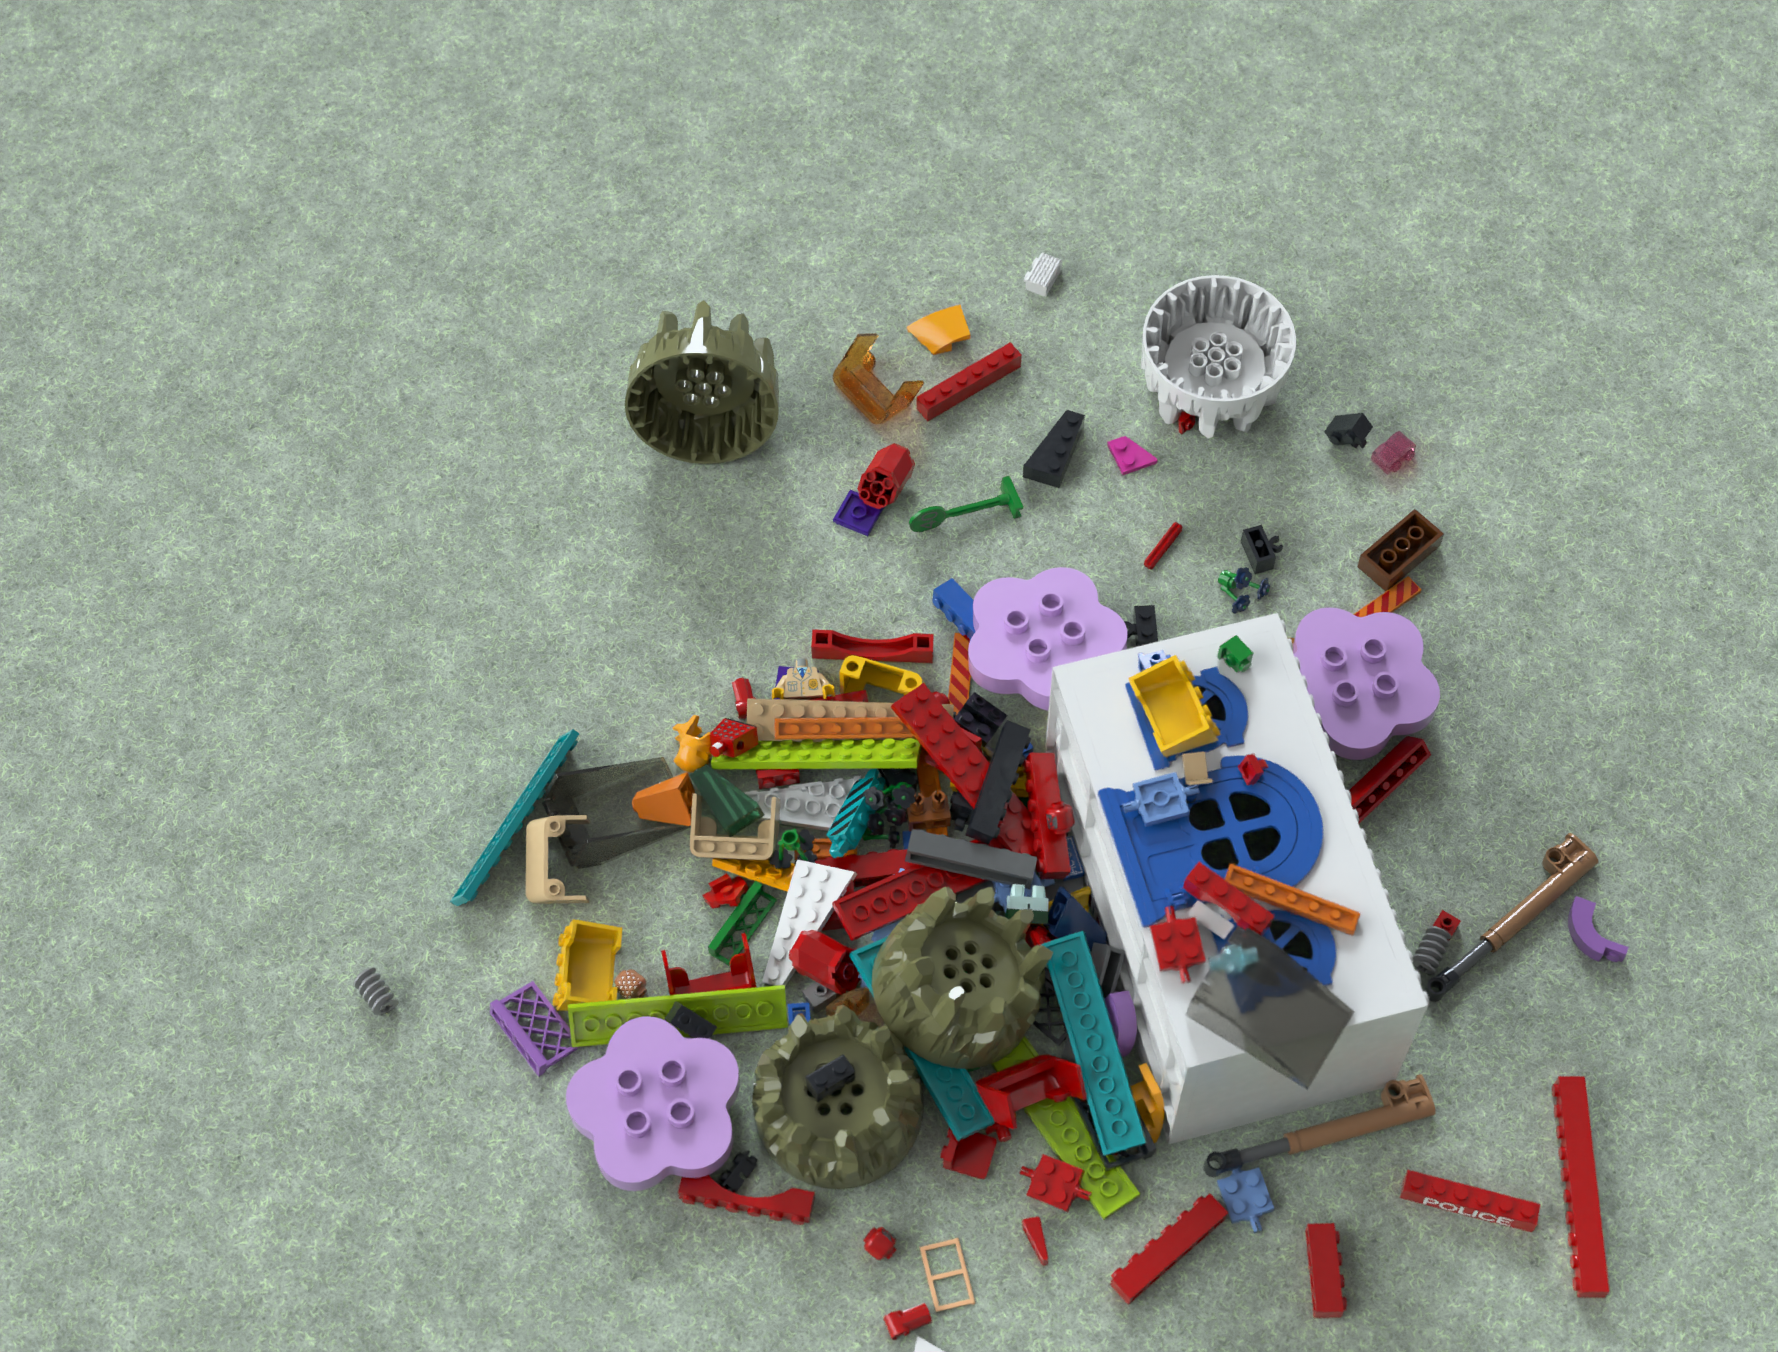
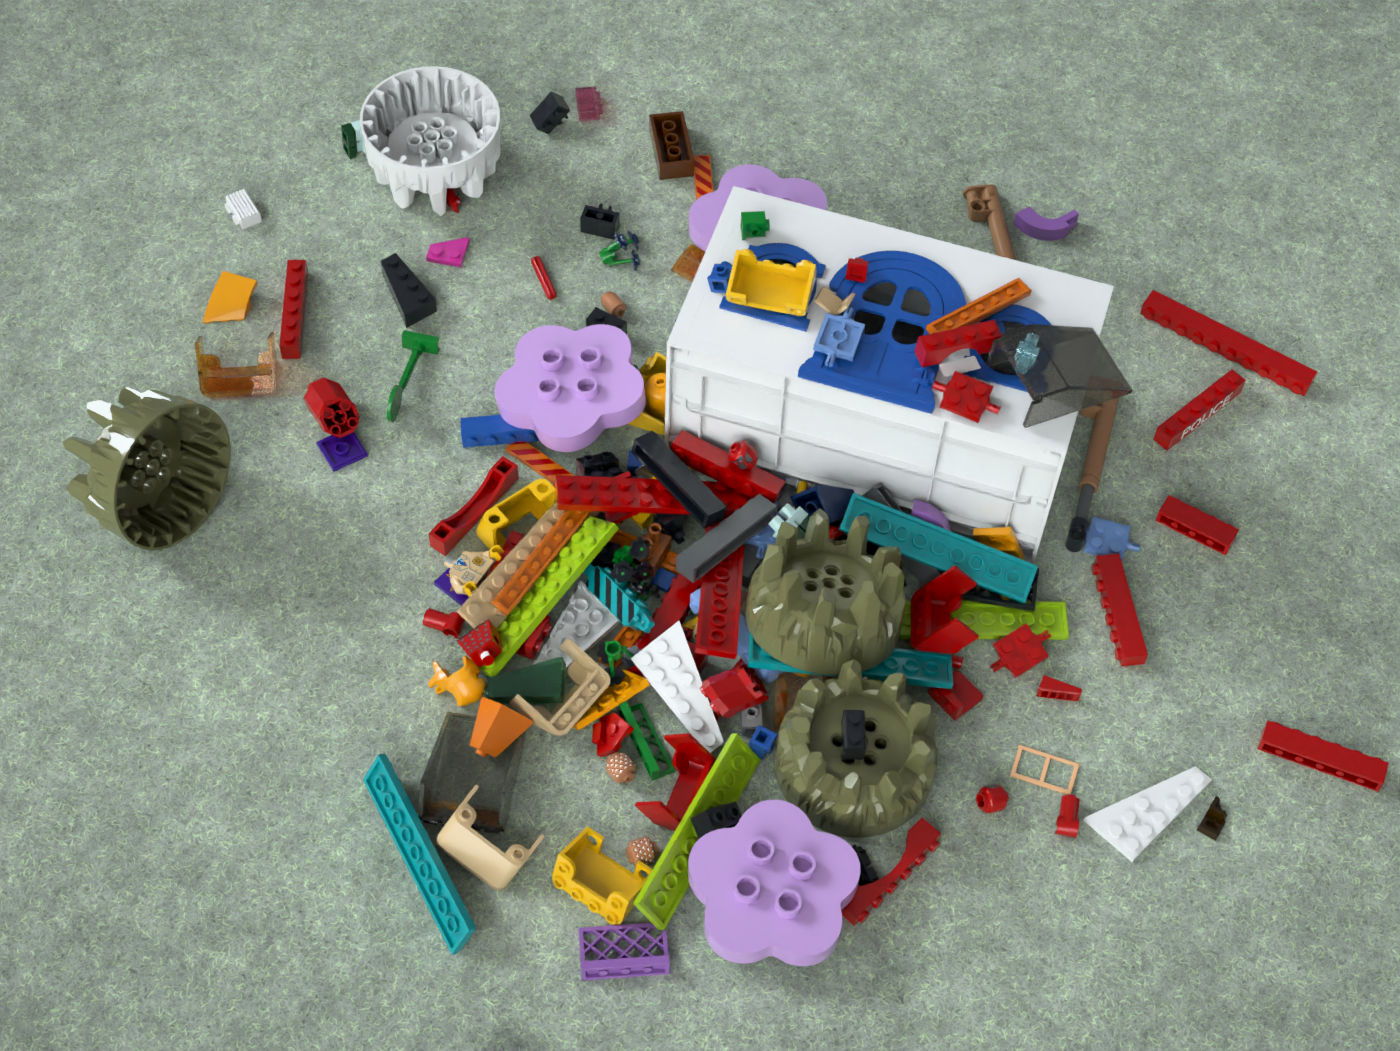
camera: 60 degrees left, 5 degrees down
(699, 920) = (621, 767): none -> nougat head
(1176, 618) = (613, 304): none -> nougat brick

